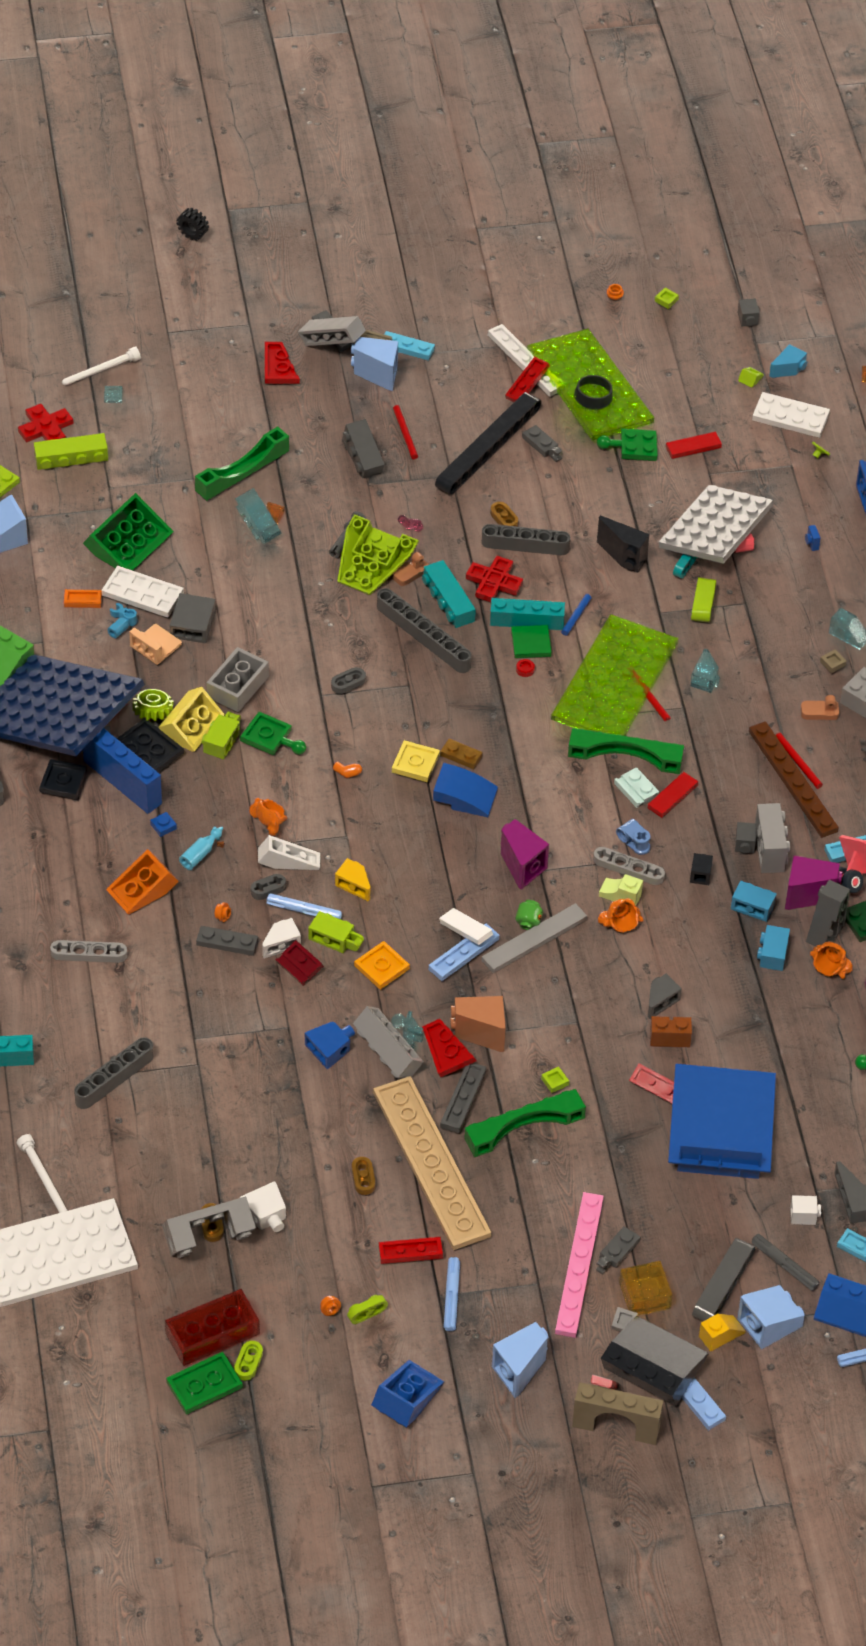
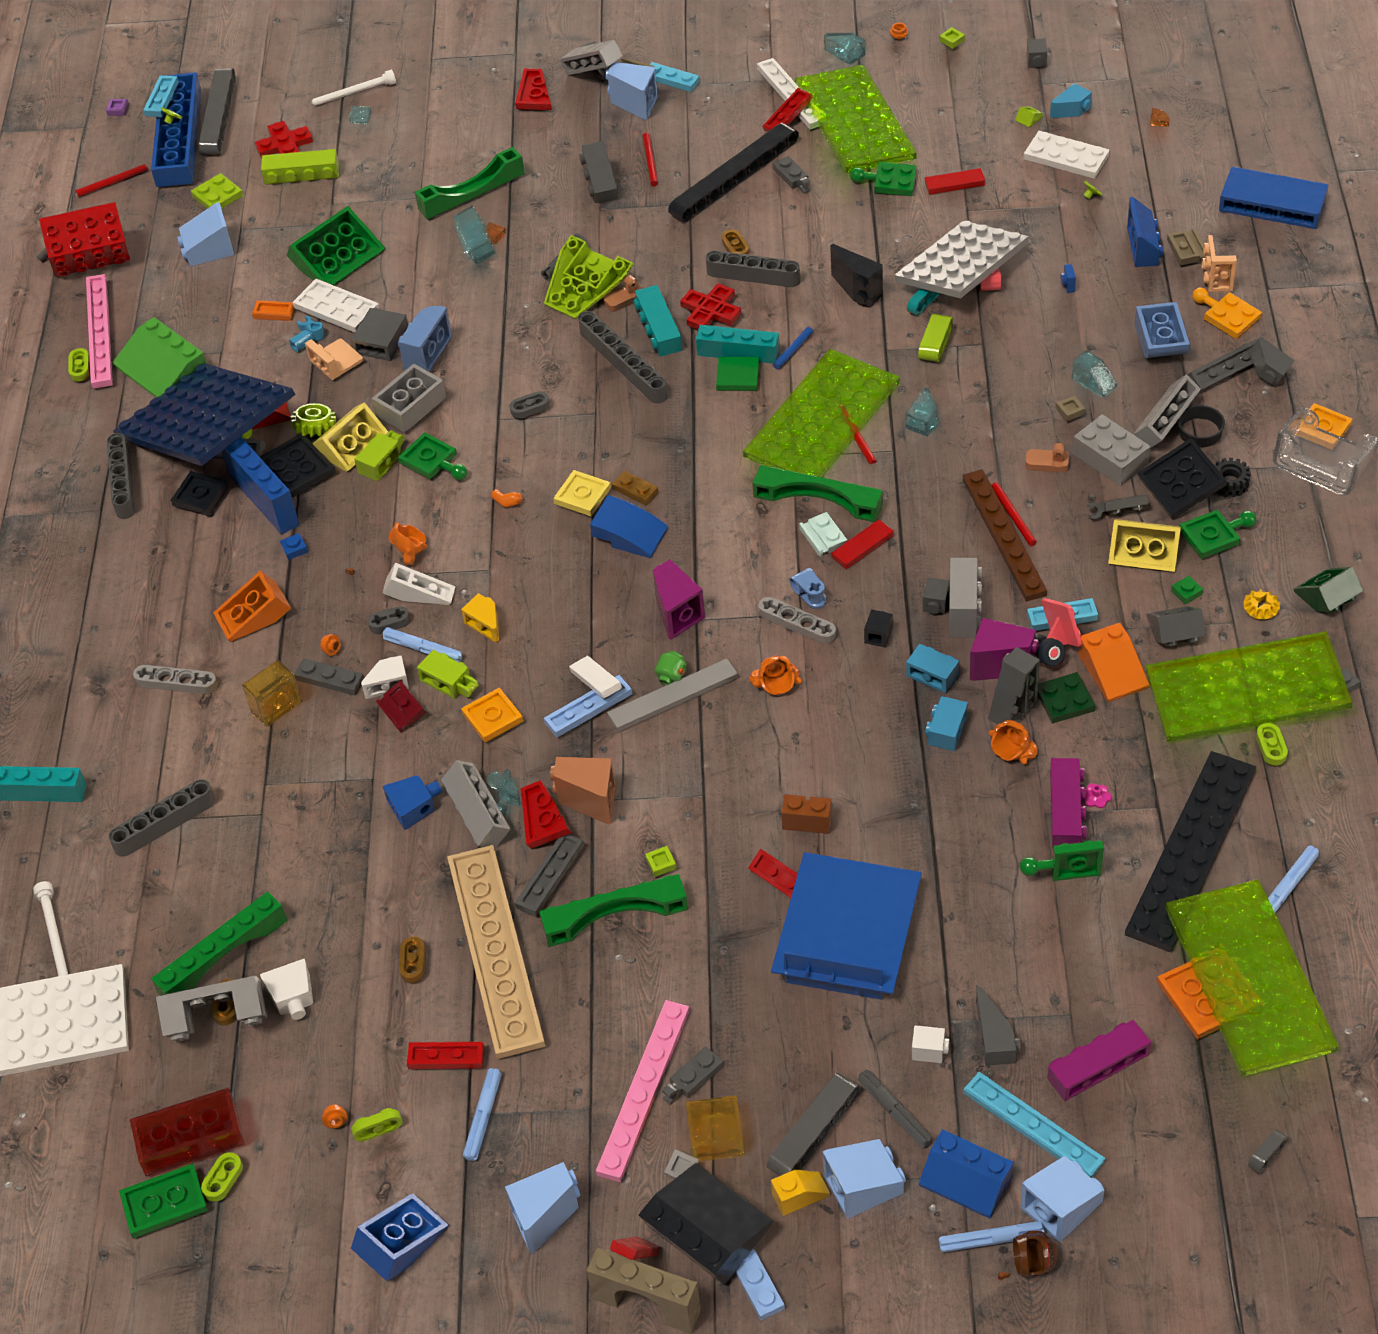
camera: 15 degrees right, 0 degrees up
(185, 958) = (272, 693): none -> clear yellow container
(199, 849) = (324, 574): medium azure wheel -> none
(219, 1155) = (254, 921): none -> green arch
(239, 621) = (425, 338): none -> medium blue brick
(410, 524) = (633, 248): clear pink arm -> none
(525, 668) = (725, 400): red tile -> none
(568, 310) = (845, 46): none -> clear light blue slope
(590, 402) = (854, 134): black tyre -> none
(622, 888) = (786, 644): yellowish green arch -> none
(663, 994) = (805, 770): dark grey slope -> none

